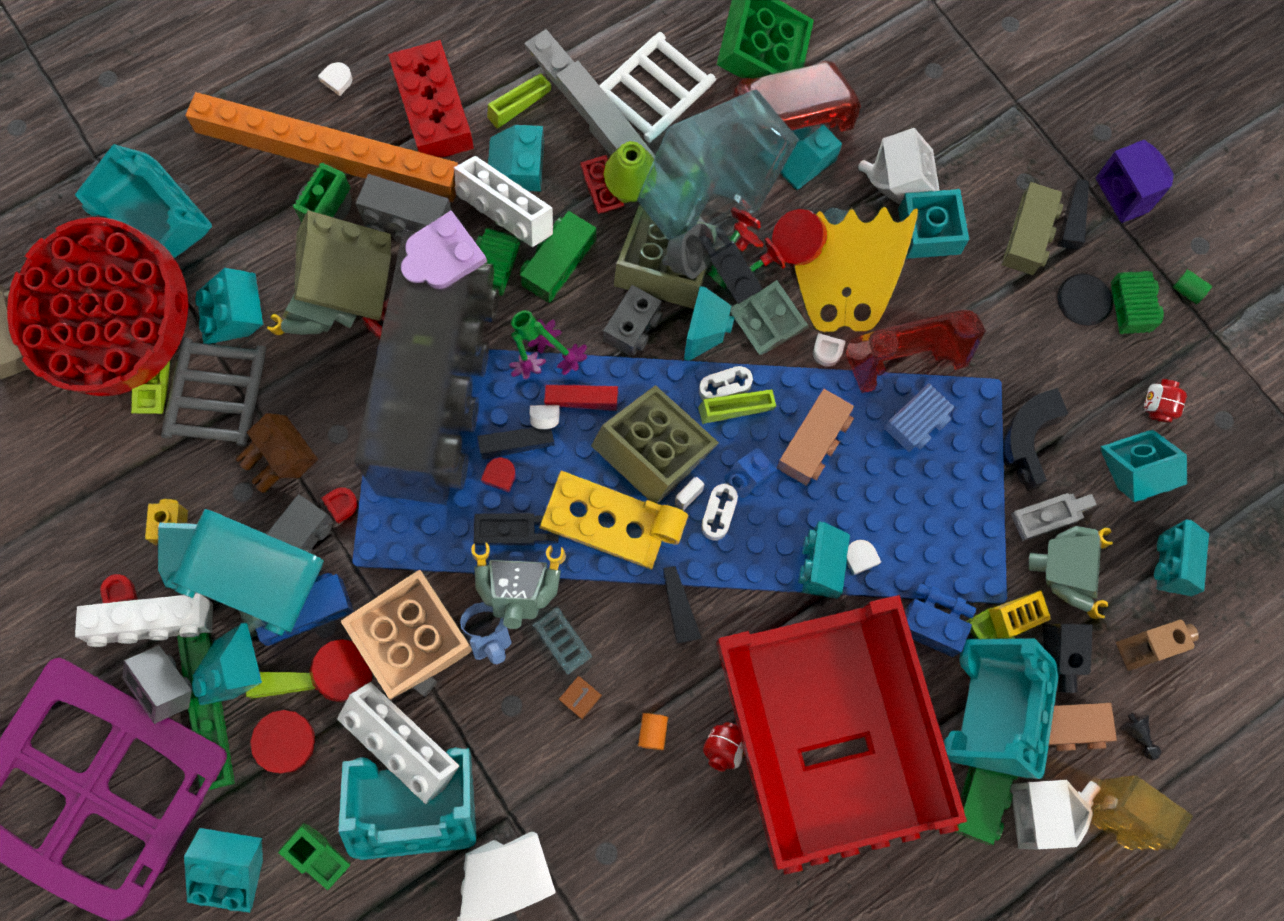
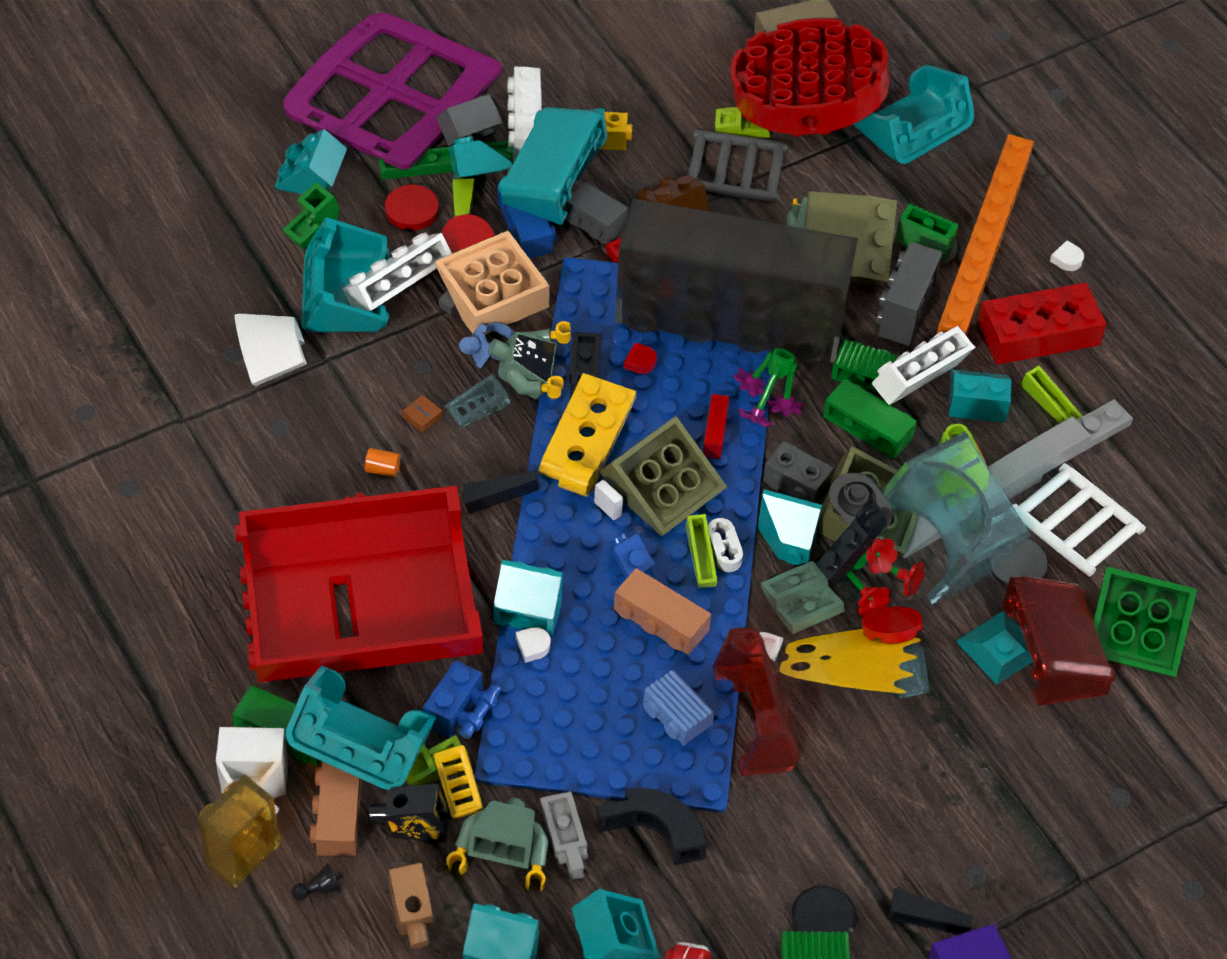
camera: 95 degrees right, 20 degrees down
(117, 589) = (556, 100): red tile -> none
(229, 306) = (818, 172): teal slope -> none
(441, 253) = (832, 261): lavender plate -> none
(514, 442) = (672, 370): black piece -> none
(544, 416) = (696, 393): white tile -> none
(712, 510) = (589, 528): white beam -> none
(902, 166) = (974, 730): white piece -> none
(939, 223) = (909, 752): teal brick -> none
(1033, 229) = (908, 860): olive brick -> none

